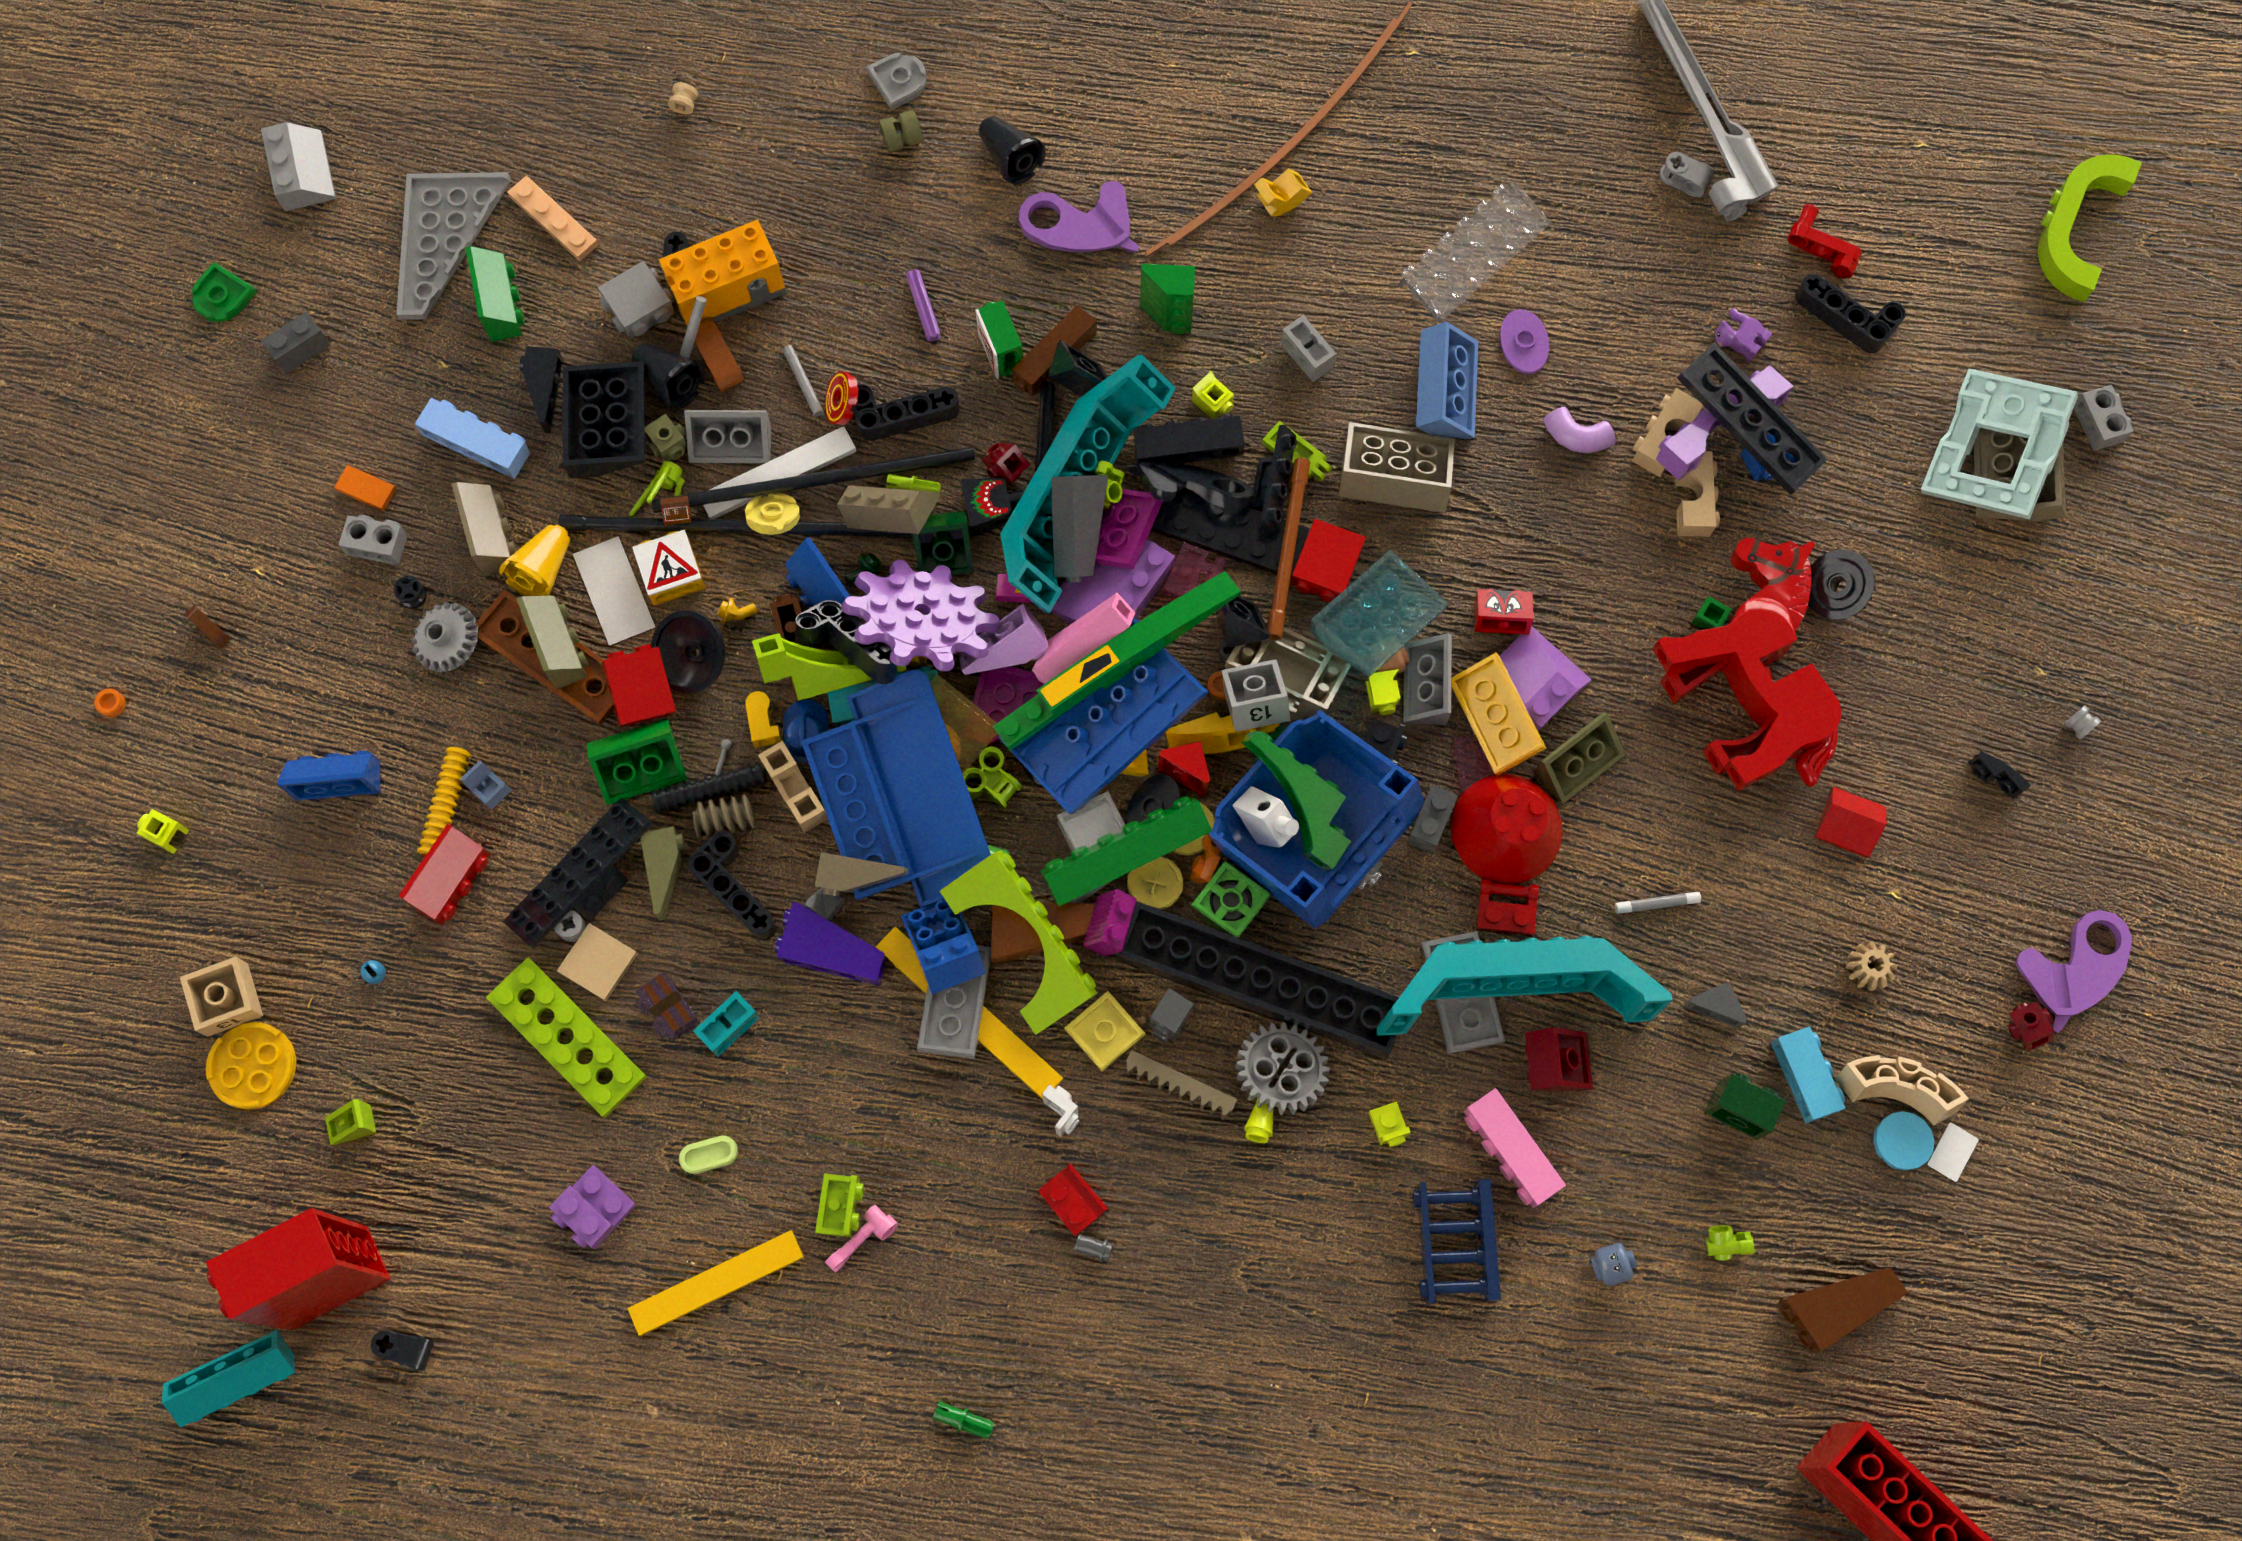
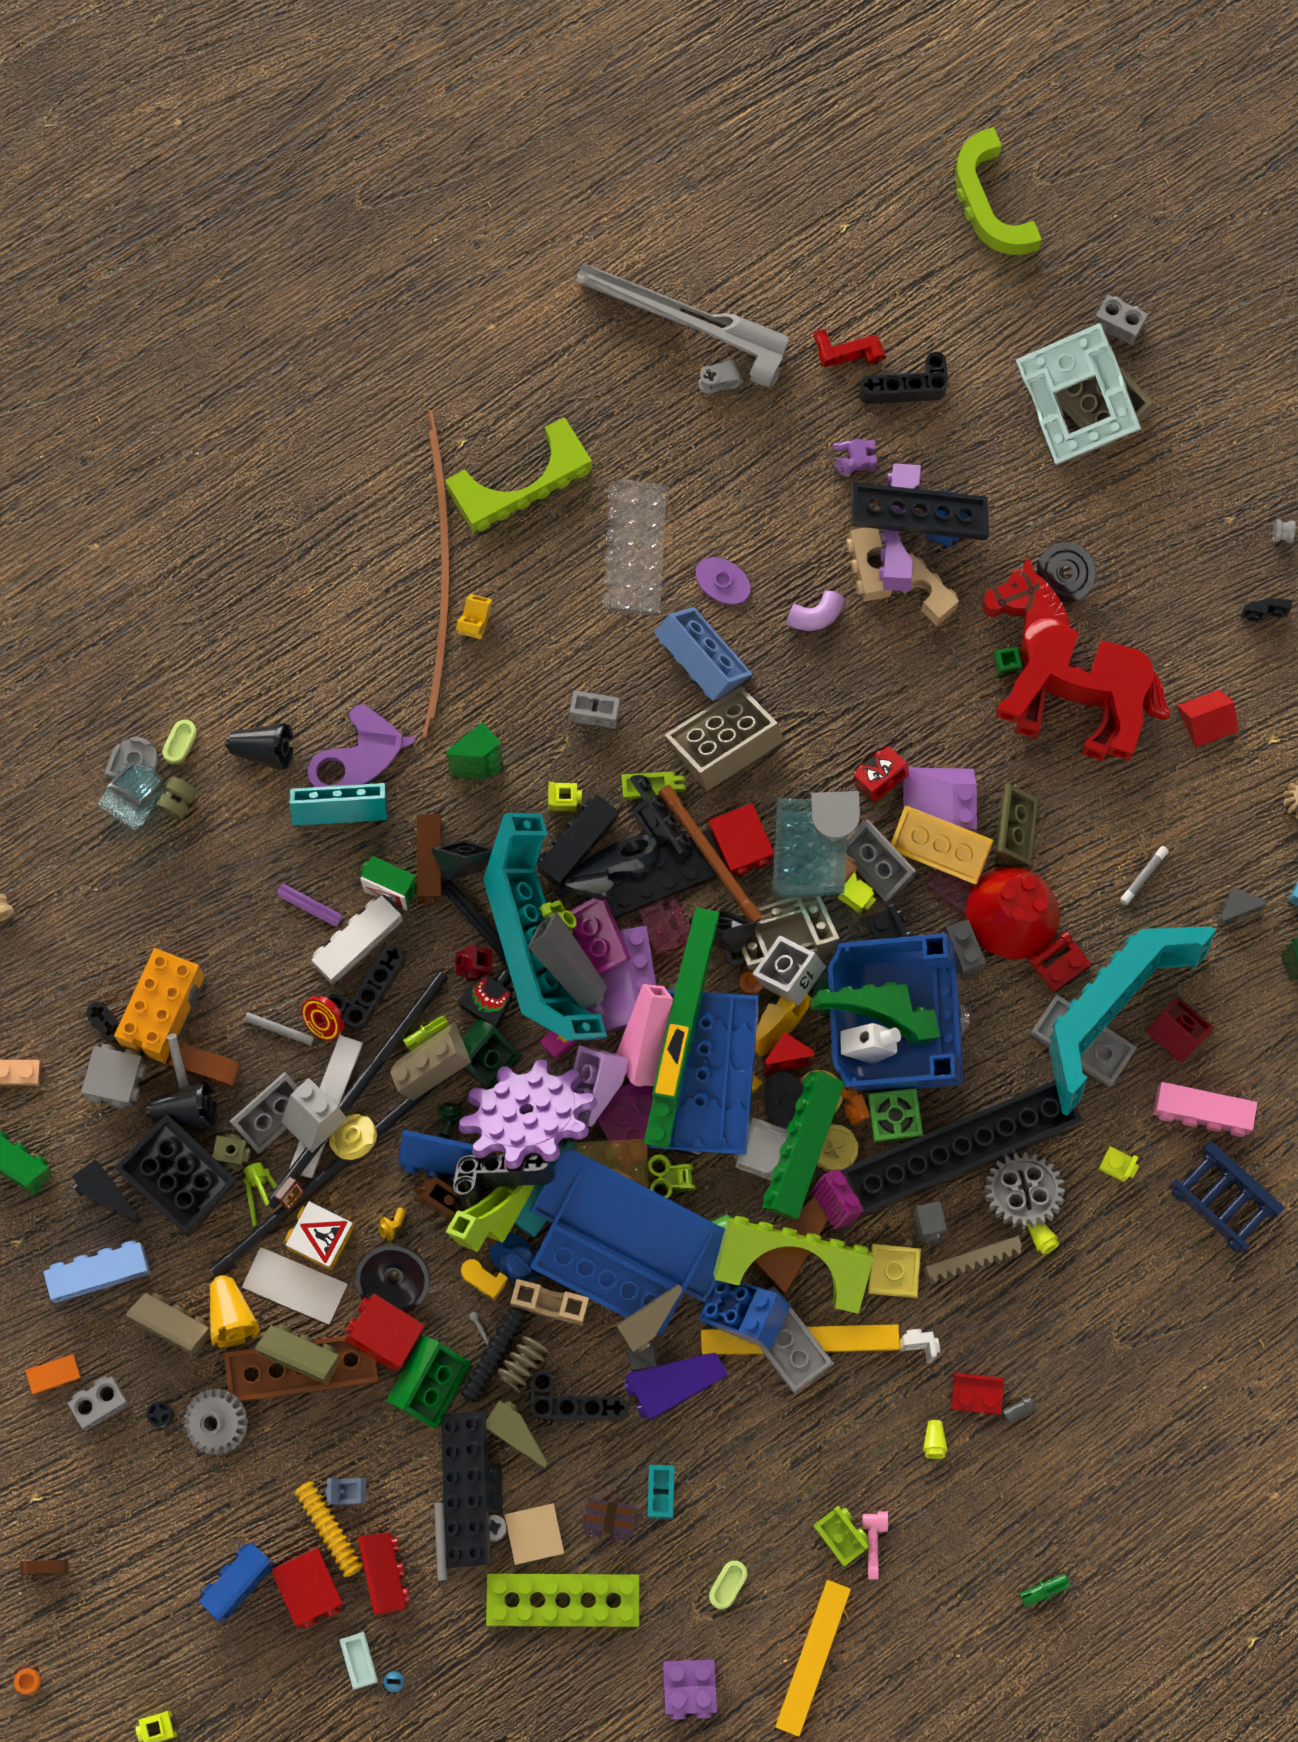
camera: 45 degrees left, 0 degrees up
(363, 929) = (358, 1660): none -> light aqua tile
(381, 833) = (308, 1588): none -> red brick
(519, 897) = (440, 1541): none -> light grey bar
(755, 464) = (311, 1115): none -> light grey slope
(869, 97) = (132, 794): none -> clear light blue piece
(931, 363) = (356, 939): none -> white brick
(949, 93) = (179, 742): none -> yellowish green tile
(996, 1203) = (935, 1441): none -> neon yellow cone
(1022, 244) = (338, 804): none -> teal brick
(1426, 603) = (835, 813): none -> light grey tile
(1479, 136) = (484, 506): none -> lime arch

